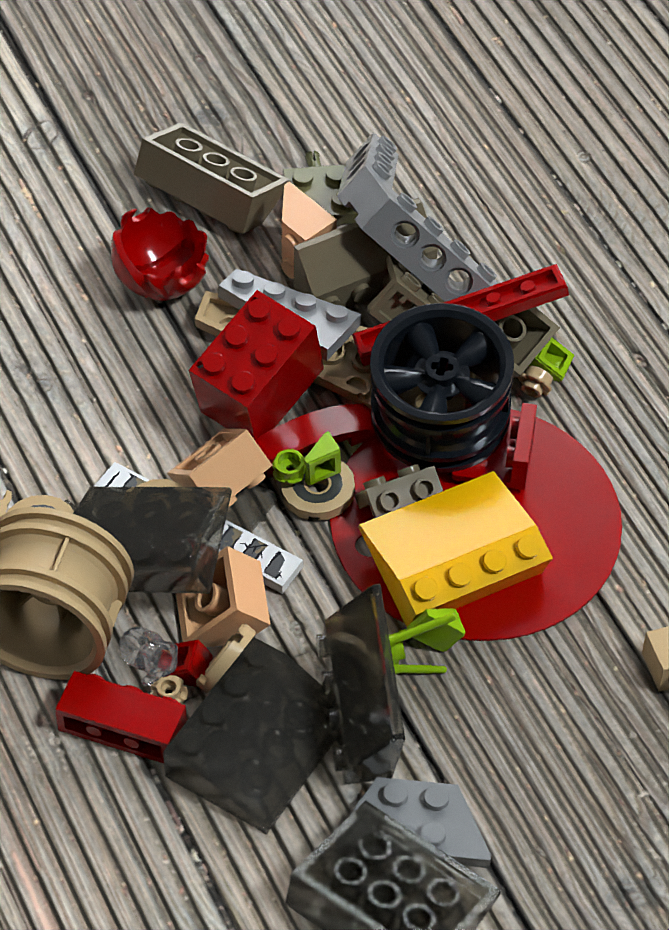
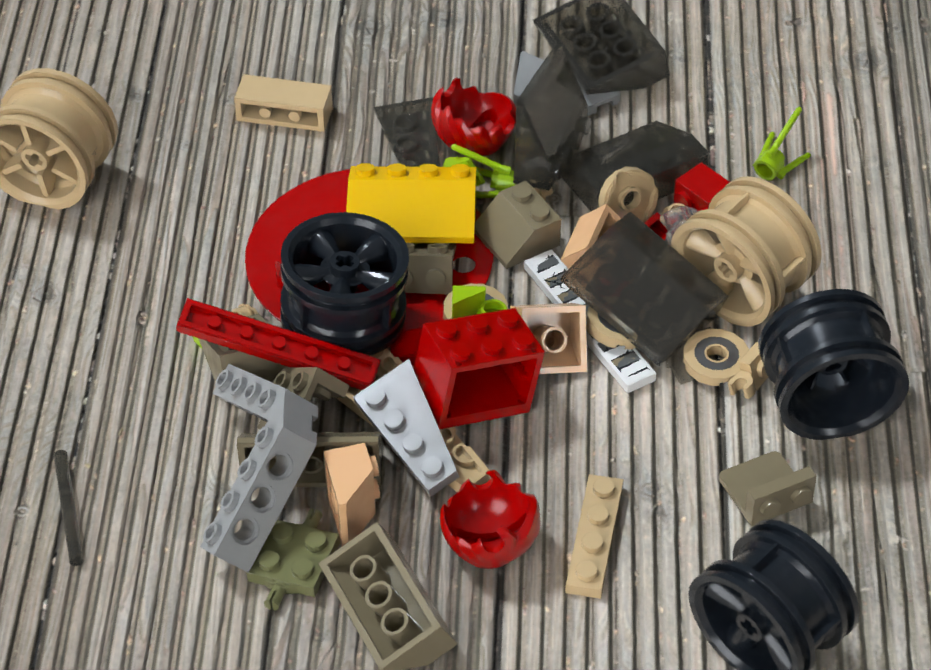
camera: 150 degrees left, 5 degrees down
(70, 317) = (594, 536): none -> tan plate
(91, 816) = (771, 160): none -> lime plant
(320, 589) = (518, 225): none -> dark tan slope
(464, 684) = (473, 118): none -> red piece
(530, 672) = (410, 132): none -> clear smoke wing
(546, 167) = (68, 508): none -> clear smoke bar

